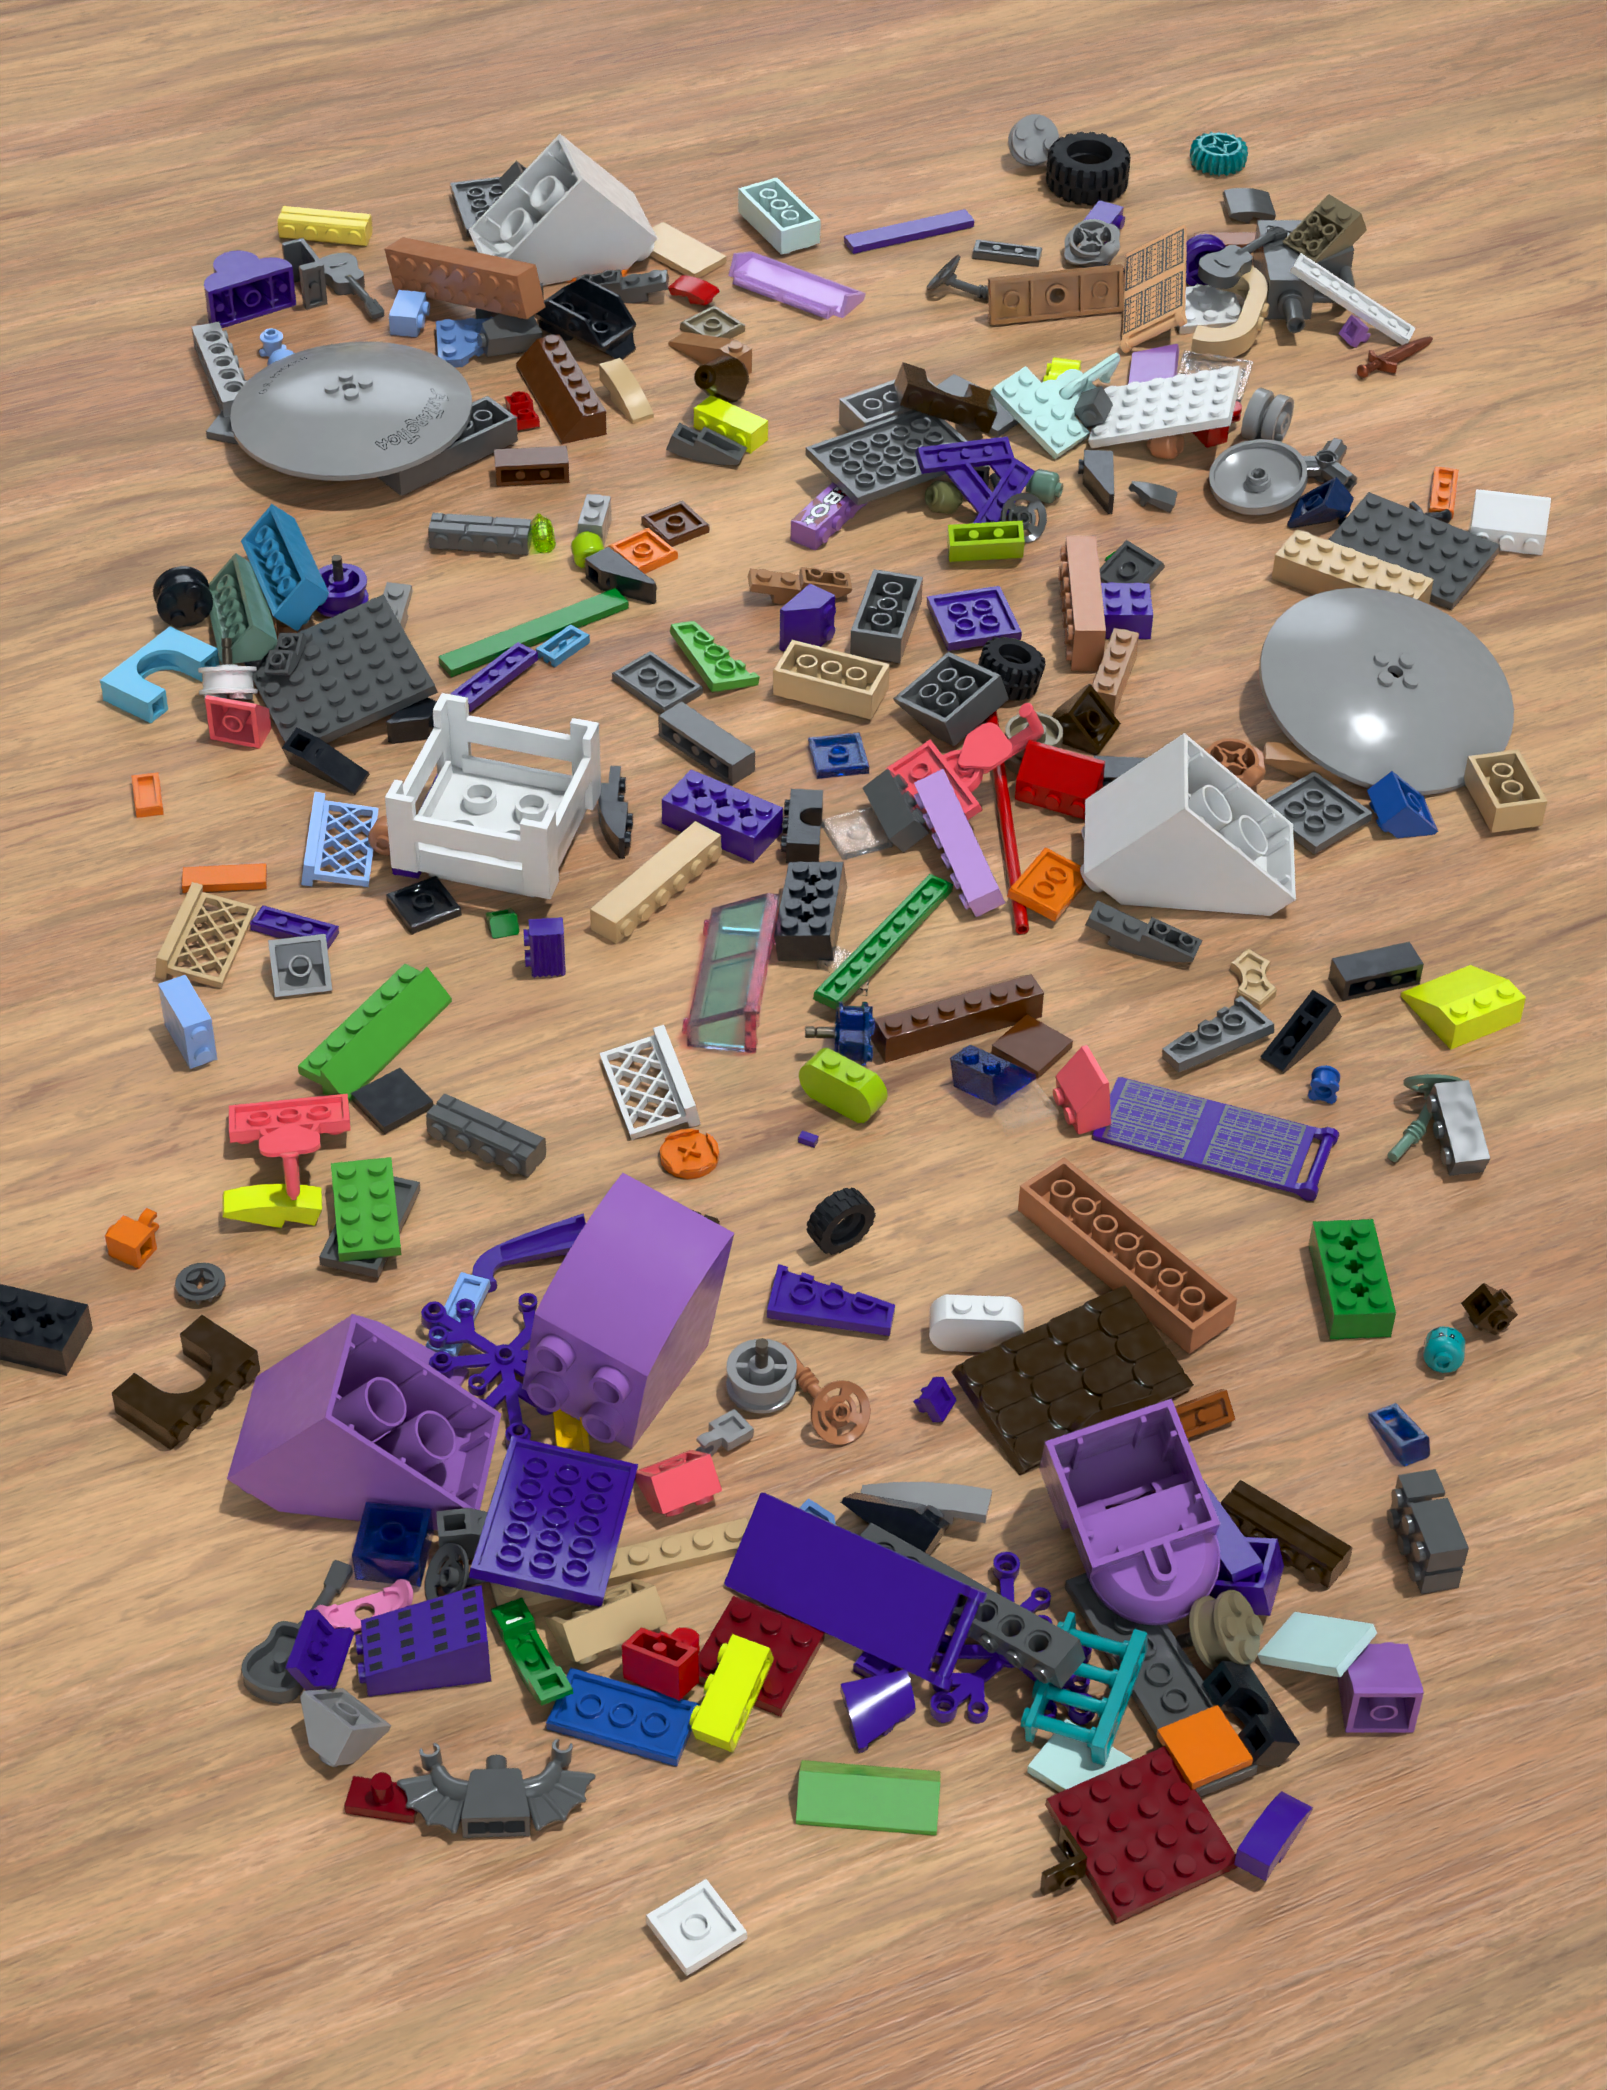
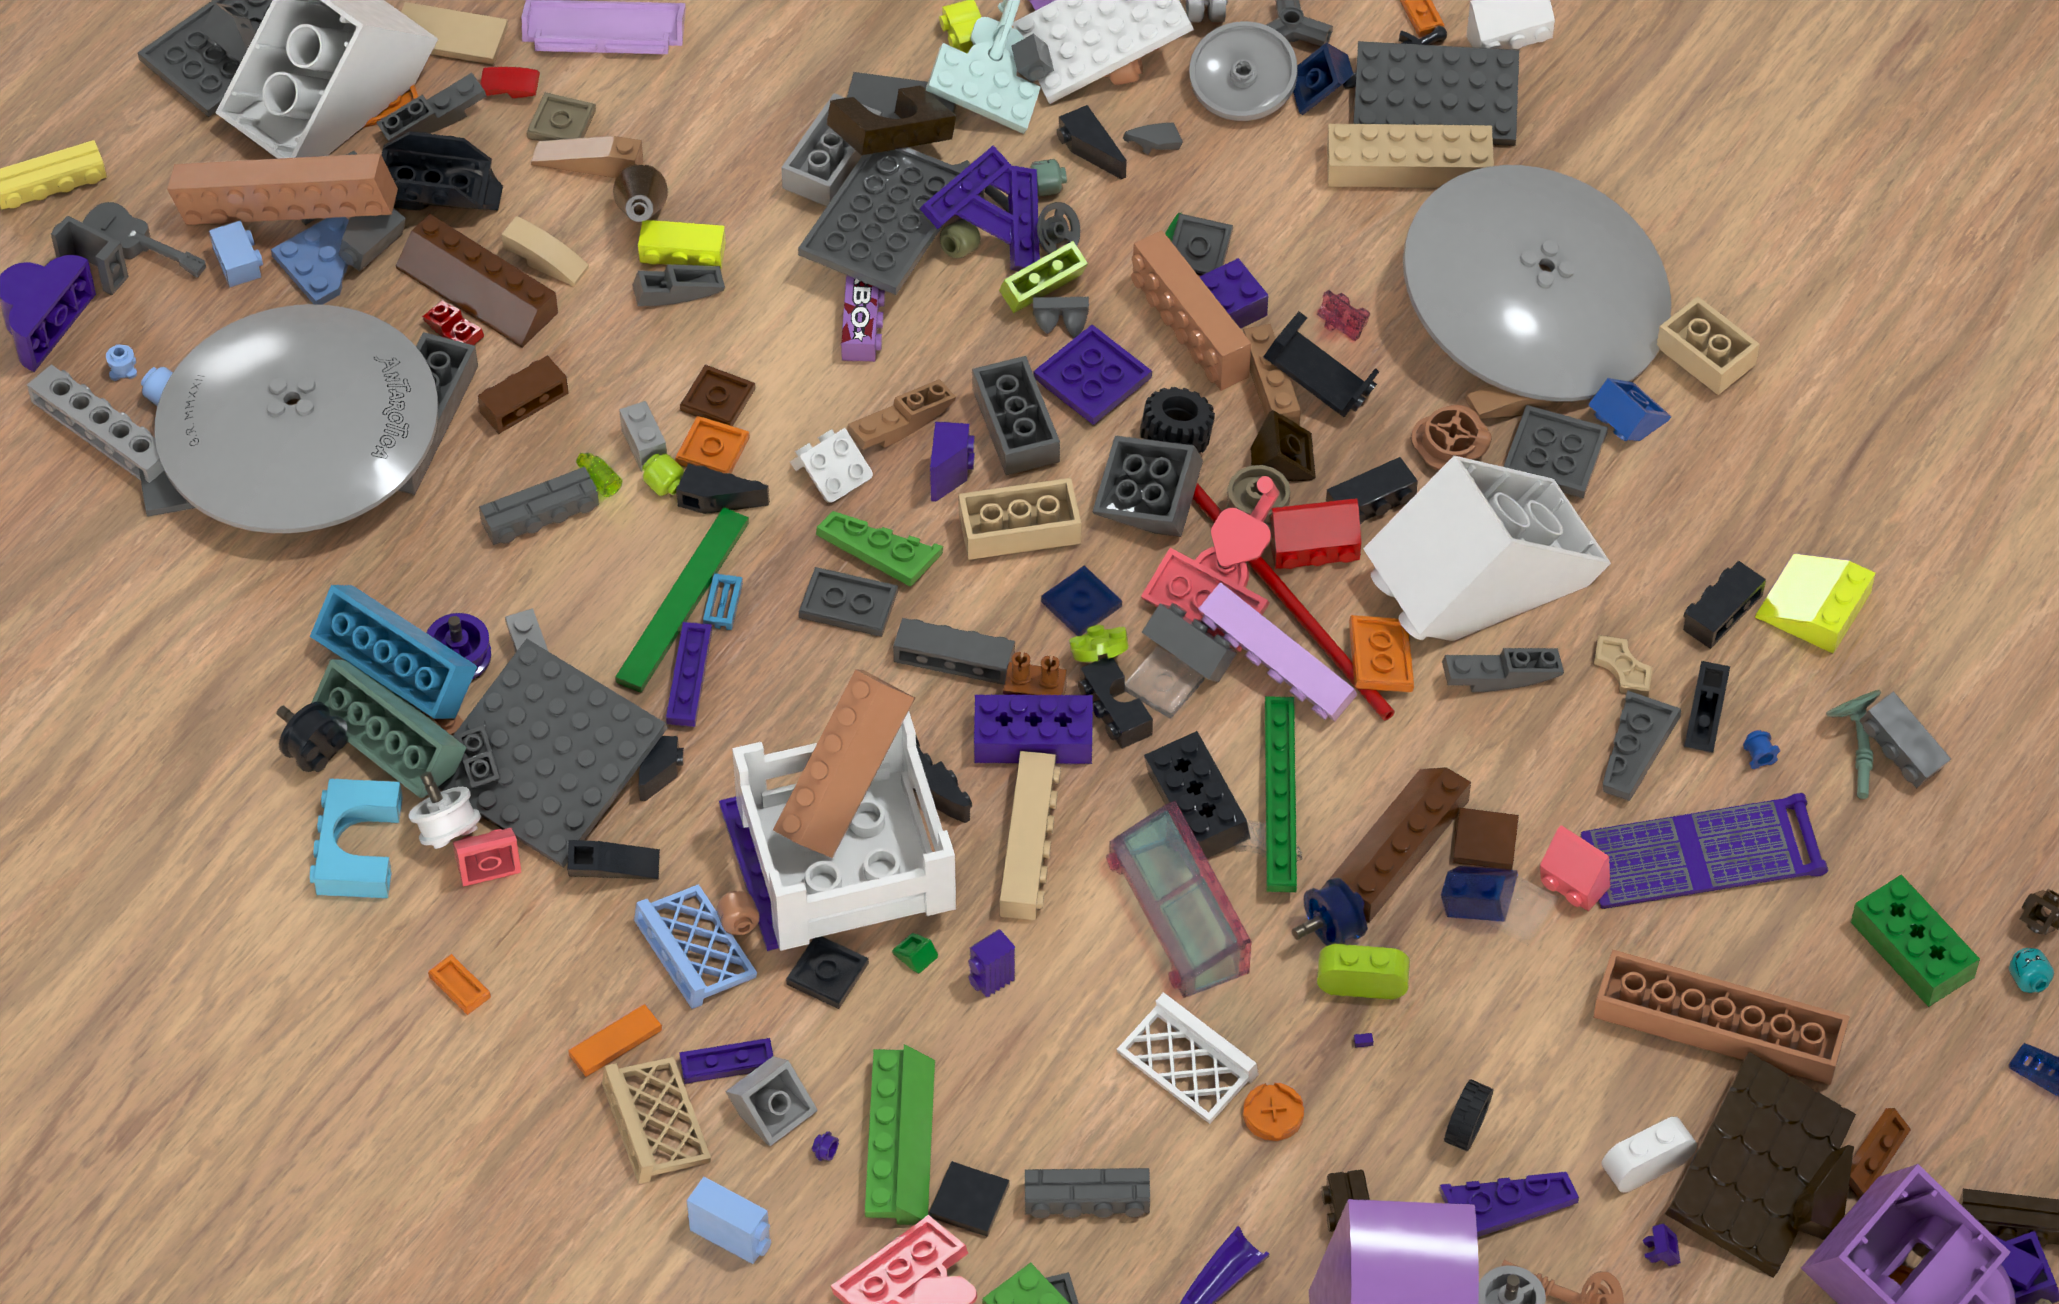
camera: 30 degrees left, 10 degrees up
(313, 1014) = (825, 1146): none -> dark purple plate
(522, 741) = (844, 763): none -> nougat slope
(721, 594) = (833, 464): none -> white bracket
(754, 780) = (1034, 679): none -> dark orange brick
(822, 781) = (1099, 642): none -> lime plate
(992, 570) = (1071, 308): none -> dark grey tile
(1152, 676) = (1318, 370): none -> black panel
(1209, 657) = (1341, 315): none -> clear pink hips

